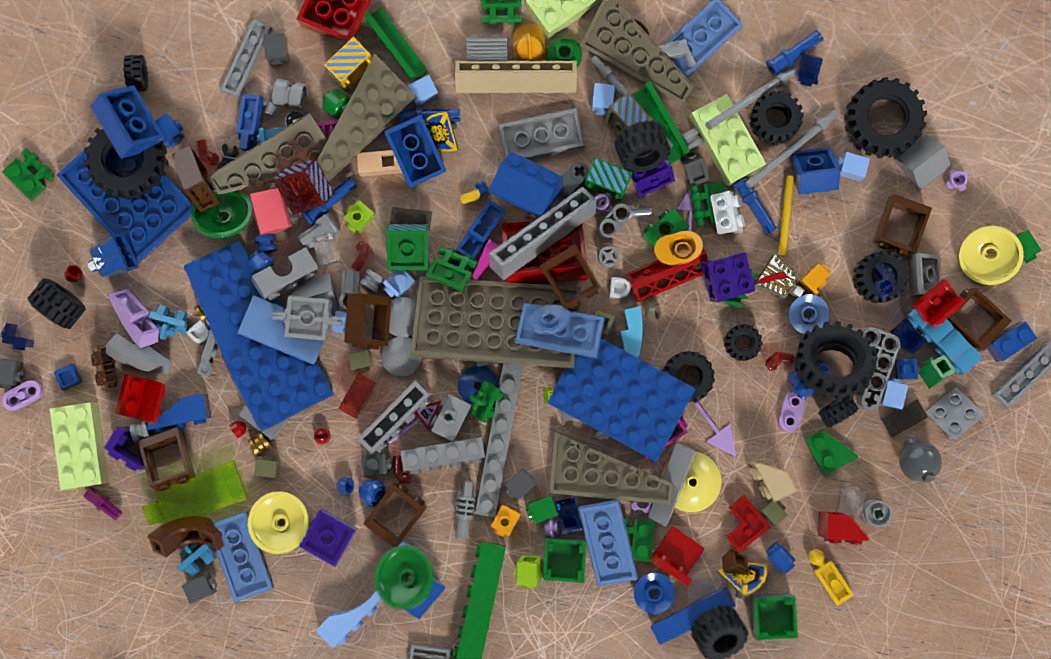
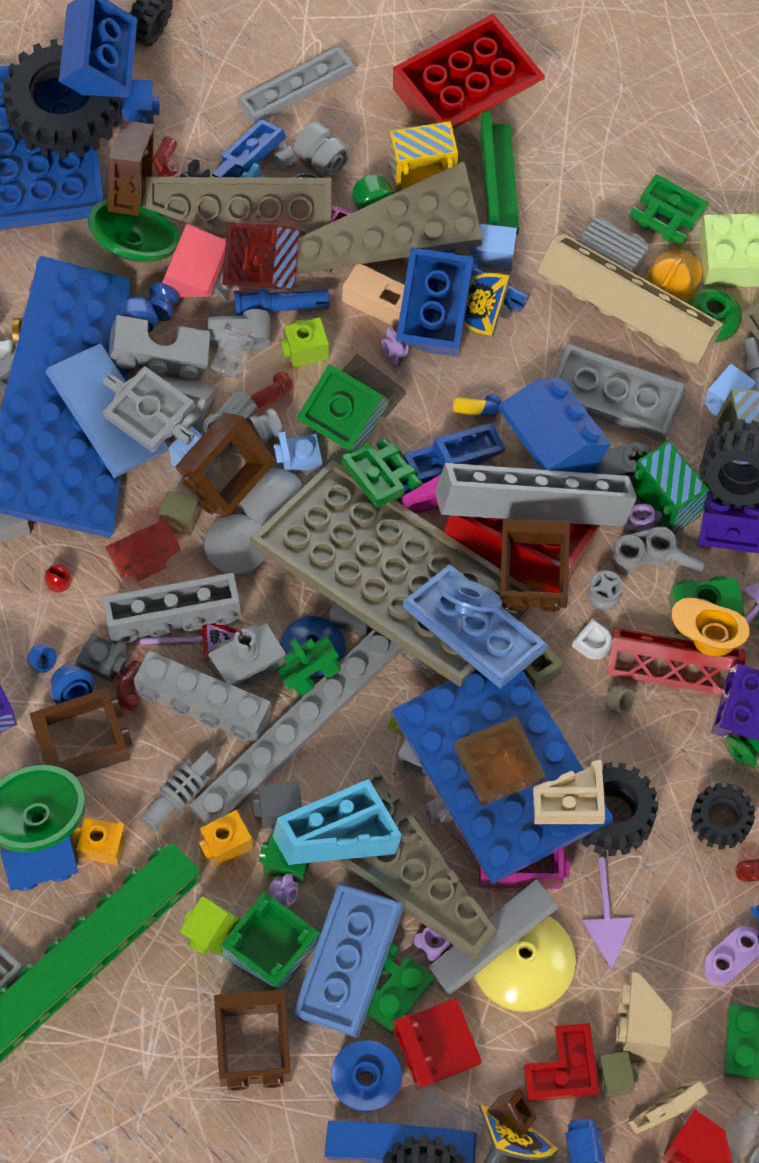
camera: 30 degrees right, 20 degrees down
(276, 48) = (342, 92): dark grey brick -> none
(404, 188) = (391, 348): none -> lavender plate
(449, 557) = (106, 850): none -> light orange brick
(562, 484) = (338, 828): none -> medium azure wedge
(568, 516) = (315, 893): clear blue slope -> none
(595, 635) = (249, 1004): none -> reddish brown window
(622, 399) = (499, 761): none -> clear orange plate
(632, 337) = (572, 708): medium azure slope -> none
(671, 395) = (571, 798): none -> tan wing
(810, 512) = (680, 1100): none -> tan wing

